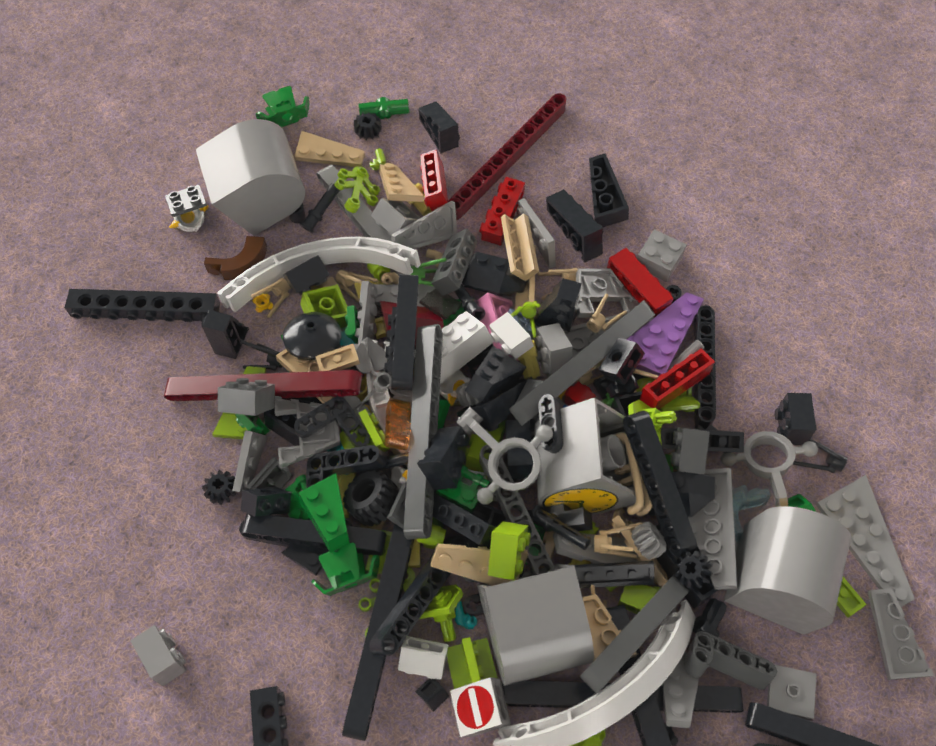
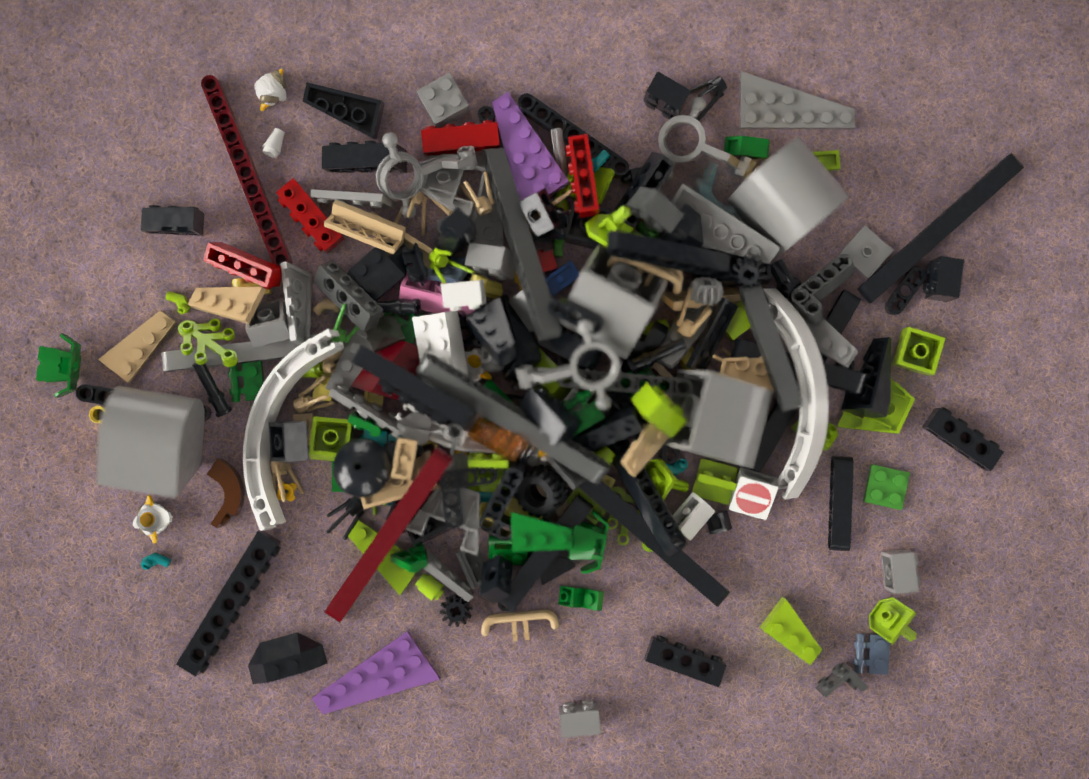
camera: 60 degrees left, 25 degrees up
(113, 371) = (285, 658): none -> black wedge
(133, 459) = (388, 671): none -> medium lavender wing
(155, 238) = (154, 559): none -> teal arm
(185, 200) = (133, 514): bracket -> none
(219, 520) = (514, 617): none -> tan piece
(224, 333) = (307, 540): black wedge -> none
(231, 454) = (430, 587): none -> lime brick
(246, 397) = (402, 556): dark grey brick -> none
(286, 595) = (581, 597): none -> green slope
(350, 230) = (252, 377): none -> green plate
(367, 125) = (128, 284): black gear -> none
(385, 107) = (115, 263): green piece -> none
(507, 298) = (418, 271): none -> black hinge
(543, 162) = (273, 144): none -> white cone
(583, 139) = (271, 89): none -> white hair
(626, 288) = (463, 160): none -> light grey piece
(698, 391) = (598, 161): none -> teal arm
(896, 639) = (880, 148): light grey wing -> none

